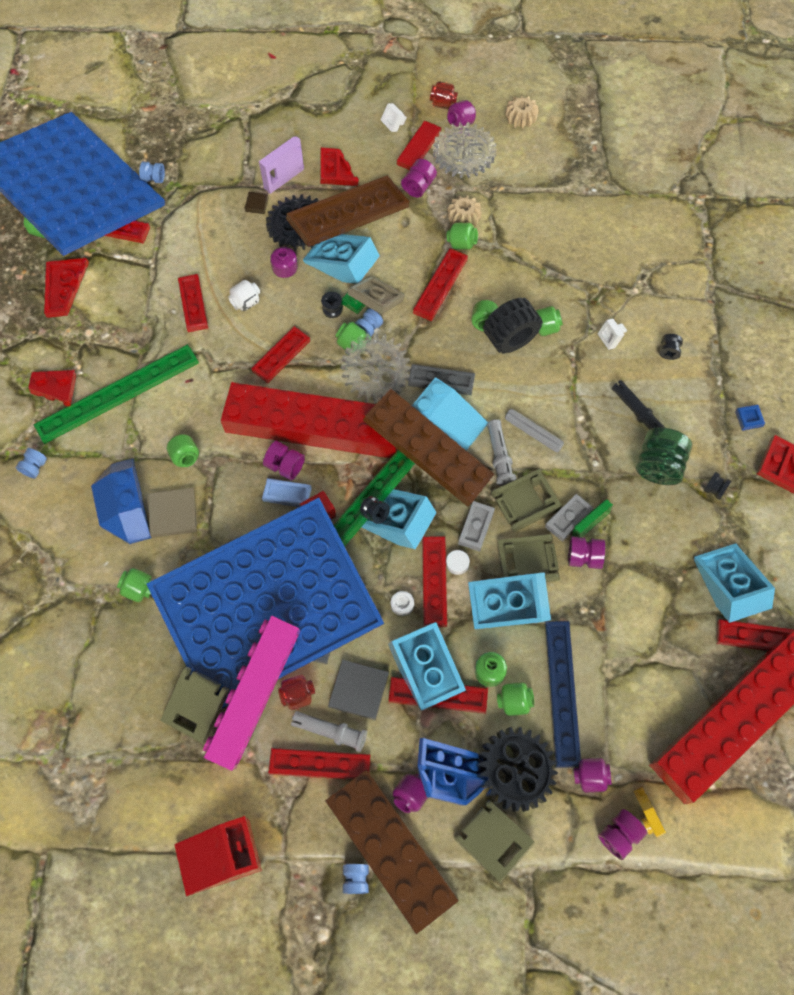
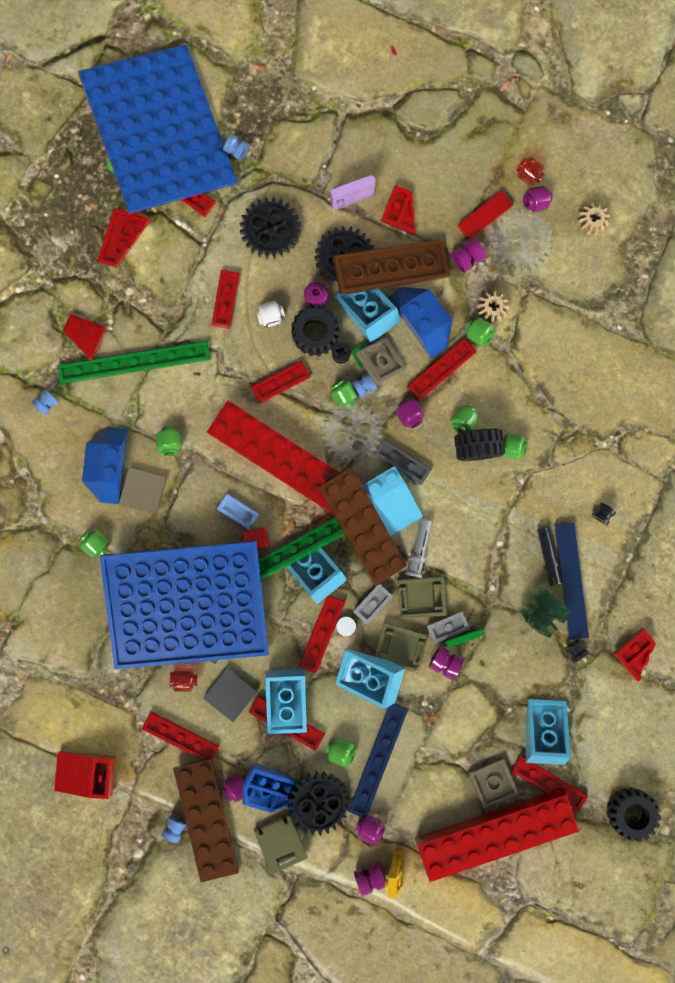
camera: 20 degrees right, 20 degrees up
(196, 701) = (107, 657): olive container -> none
(213, 225) = (277, 243): none -> black gear
(252, 693) = (149, 673): dark pink brick -> none
(256, 203) = (317, 217): dark brown tile -> none
(282, 460) = (245, 485): magenta wheel -> none
(294, 279) = (315, 315): none -> black tyre
(339, 733) = (203, 722): light grey pin -> none
(374, 509) = (297, 563): black wheel -> none
(393, 117) = (474, 176): white tile -> none
(402, 603) = (290, 641): white tile -> none
(404, 247) = (423, 317): none -> blue wedge
(428, 330) = (410, 413): none -> magenta head
(488, 676) = (330, 716): bright green head -> none
(534, 430) = (456, 540): light grey axle -> none
(611, 333) = (561, 481): white tile -> none
(668, 414) = (571, 580): none -> dark blue tile
(705, 664) = (493, 783): none -> dark tan tile
(750, 417) = (635, 601): blue tile -> none

